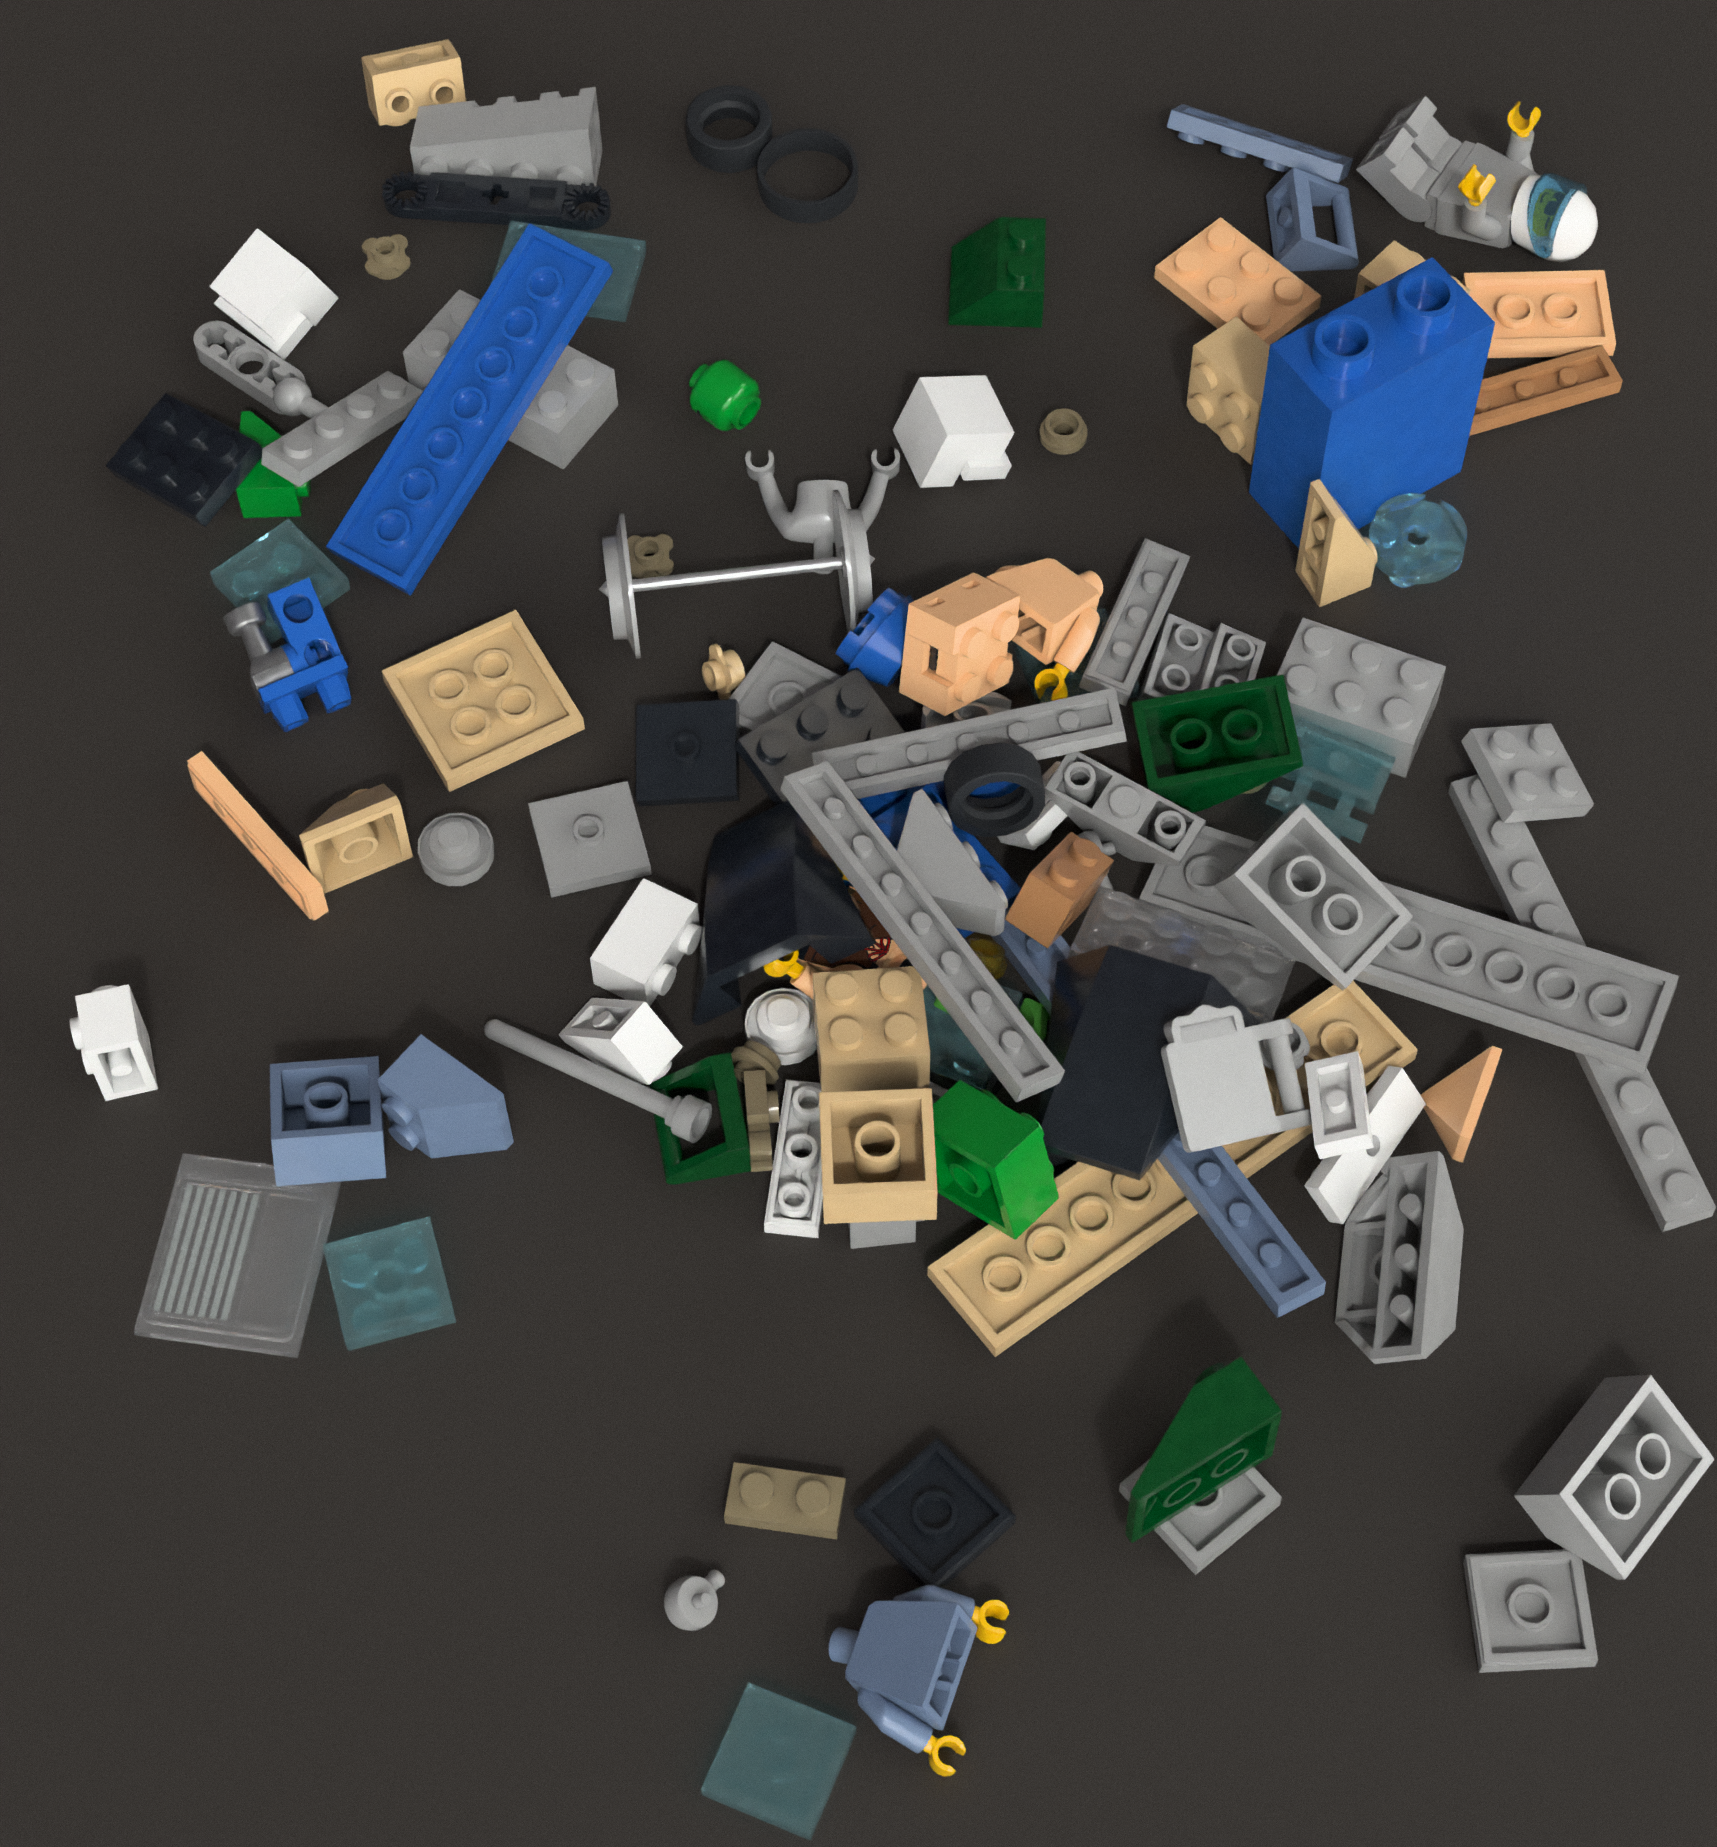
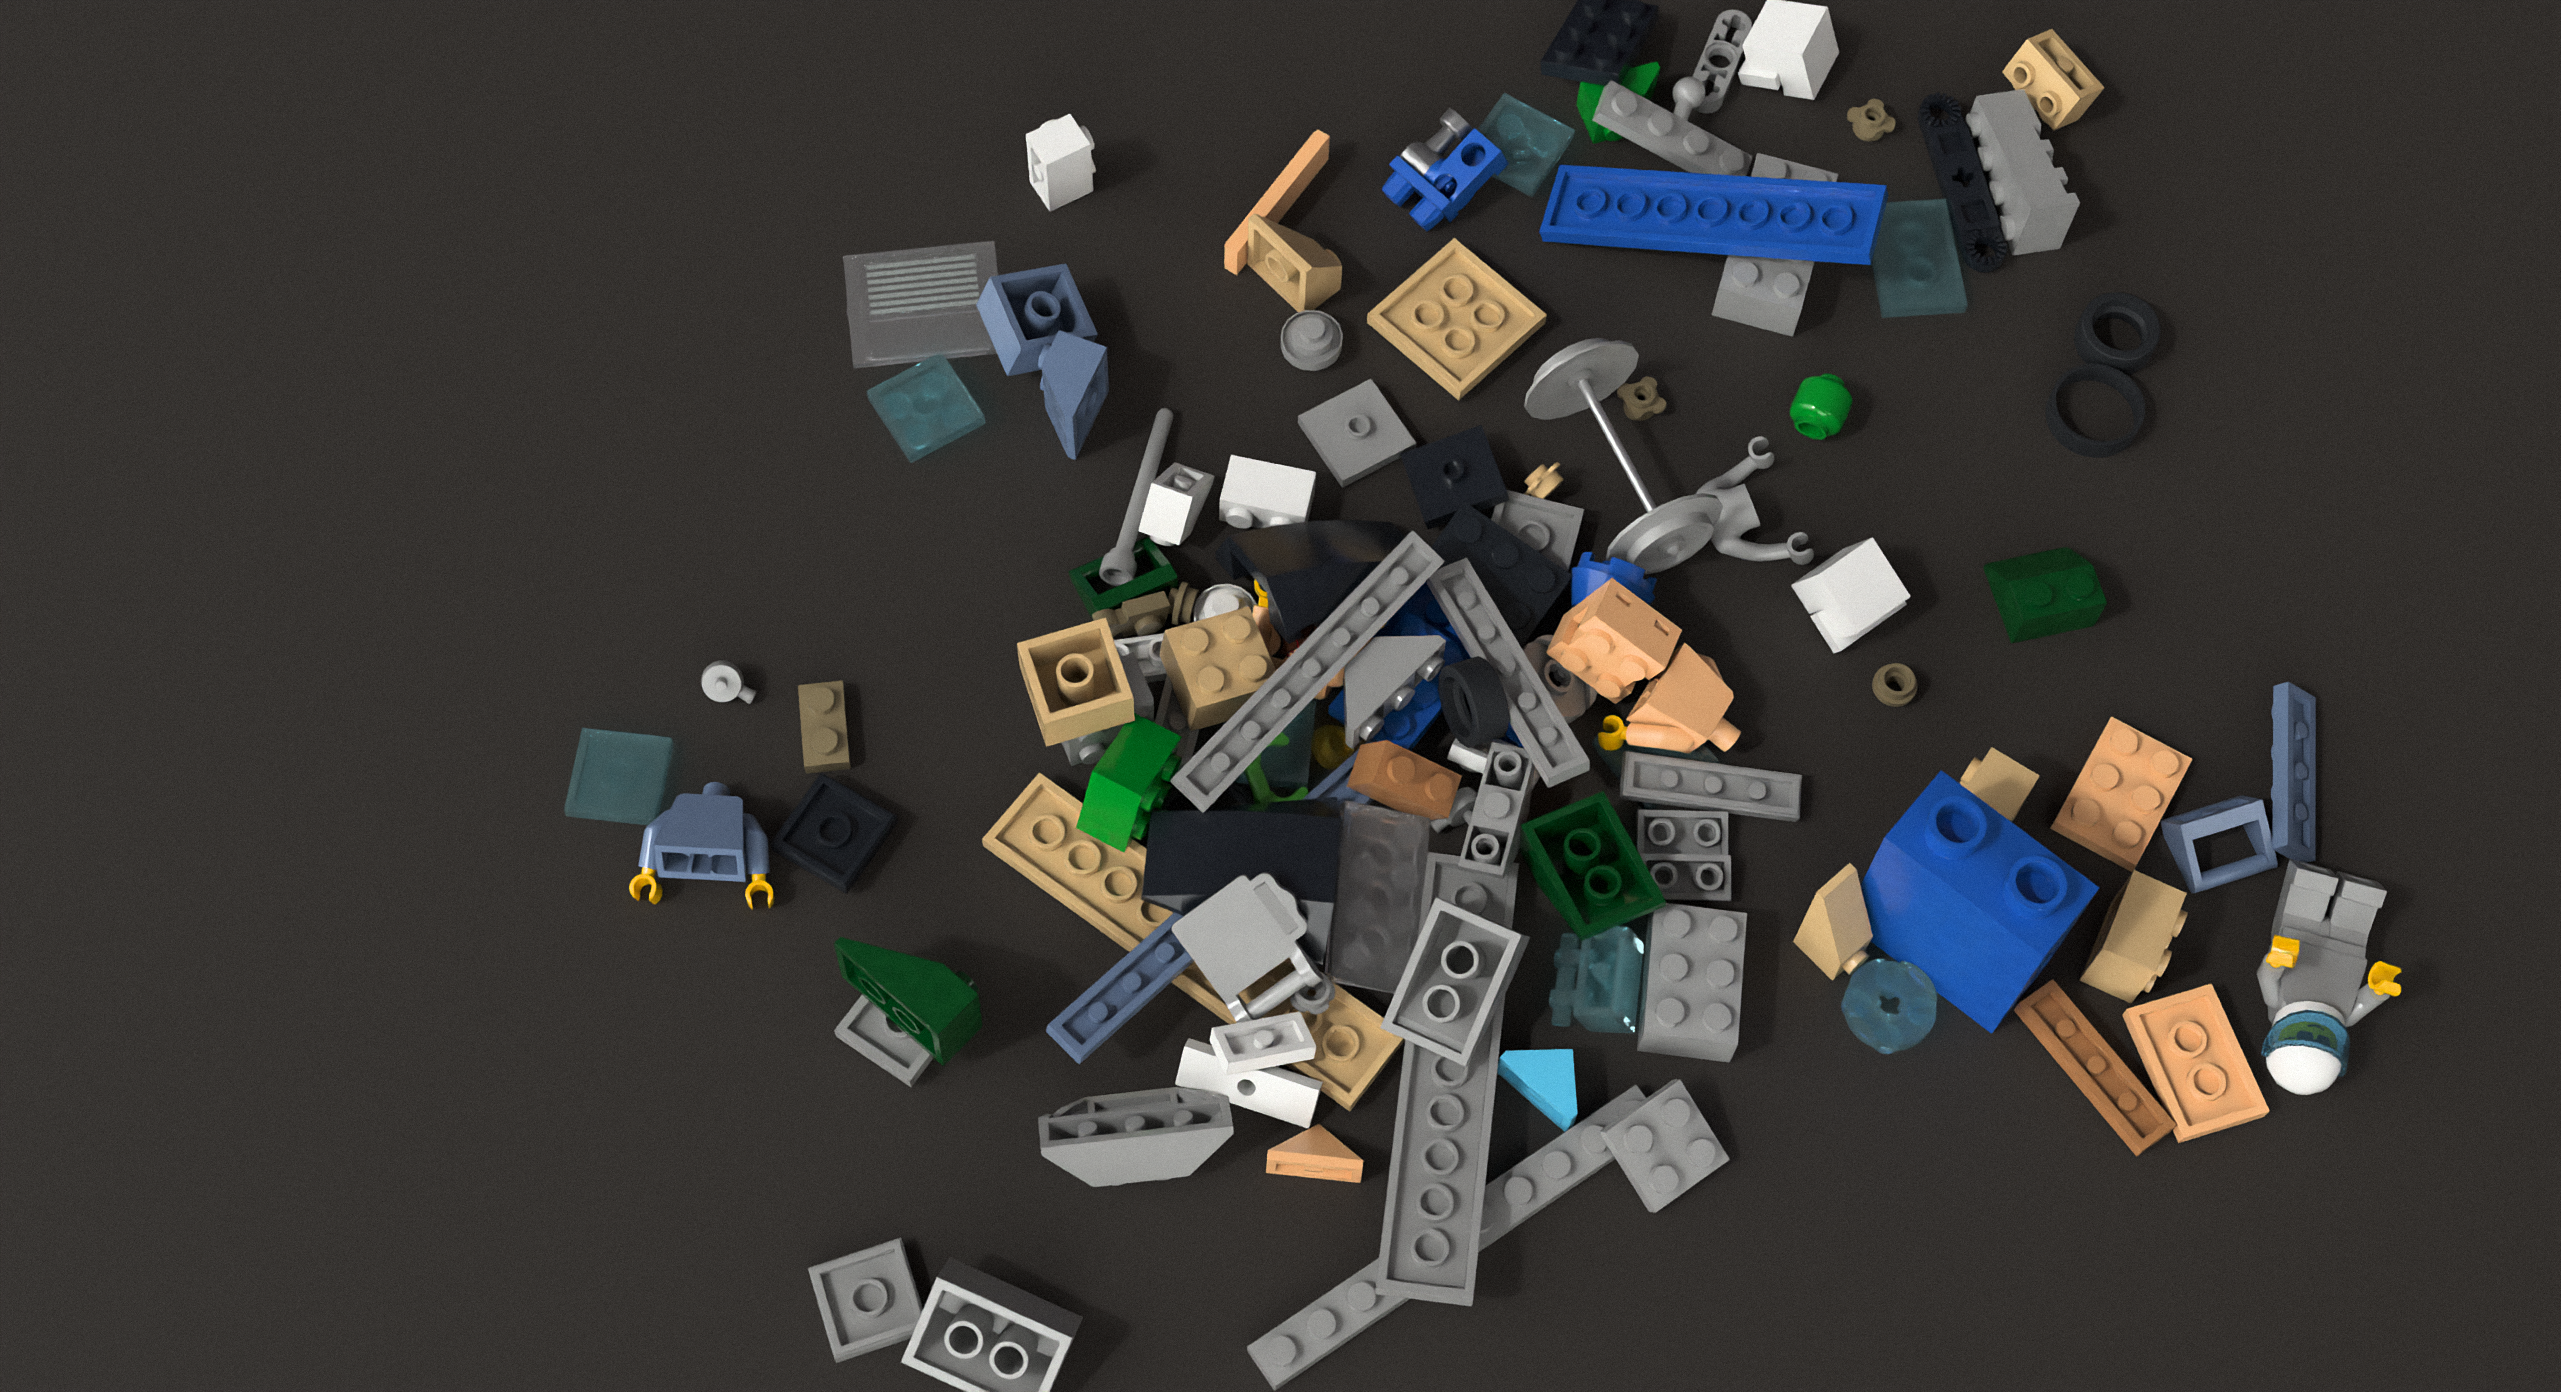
camera: 70 degrees right, 5 degrees up
(1439, 855) = (1544, 1080): none -> medium azure slope

